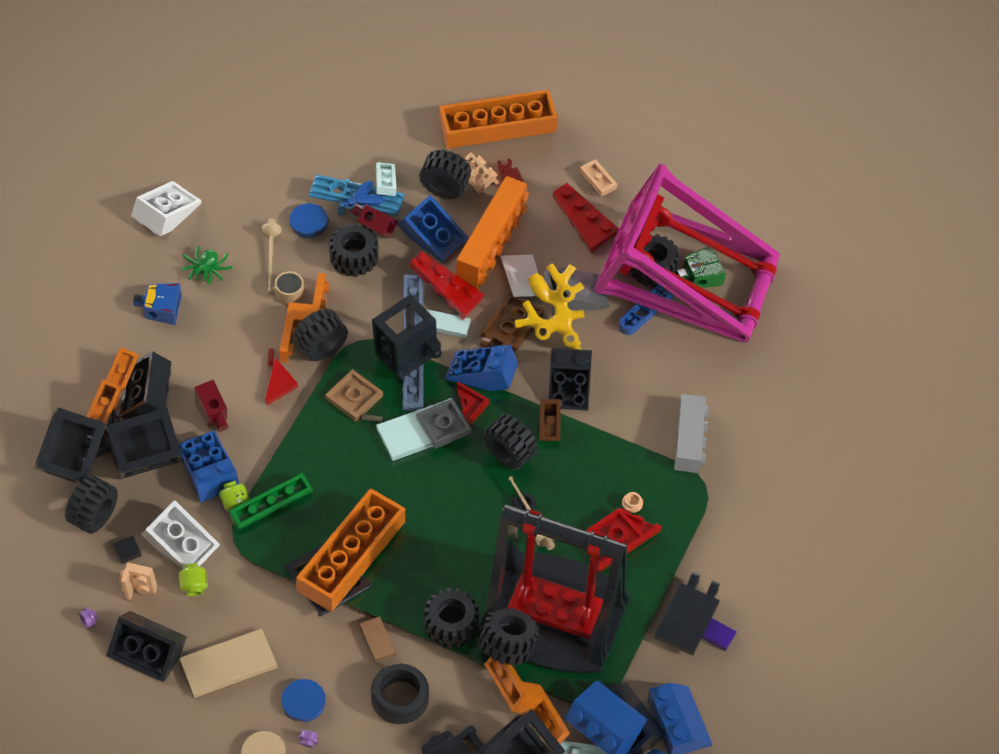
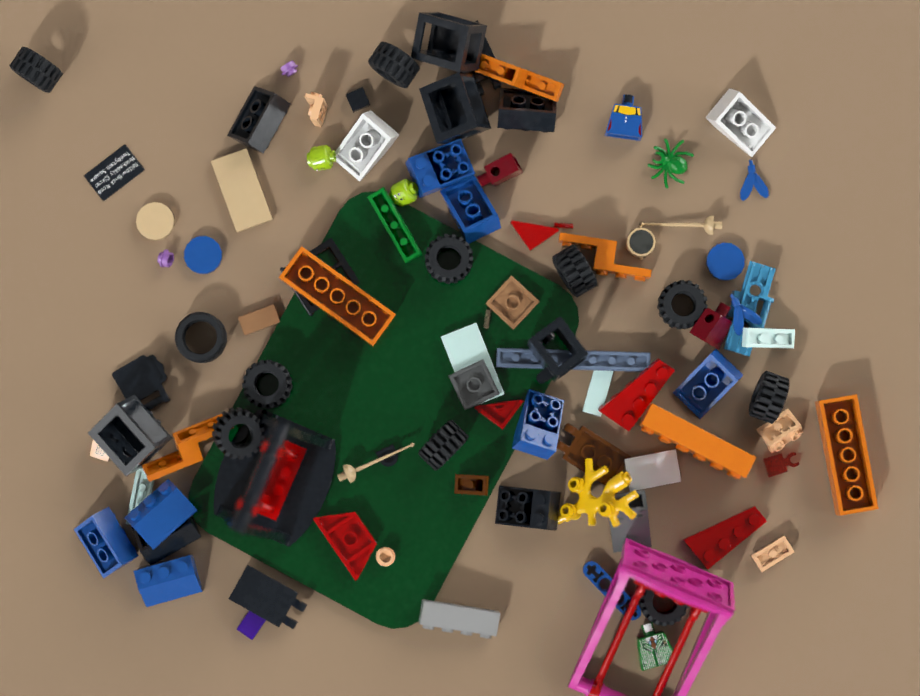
camera: 95 degrees right, 30 degrees up
(227, 199) = (753, 179): none -> blue piece
(254, 435) = (471, 209): none -> blue slope
(308, 434) = (442, 243): none -> black tyre

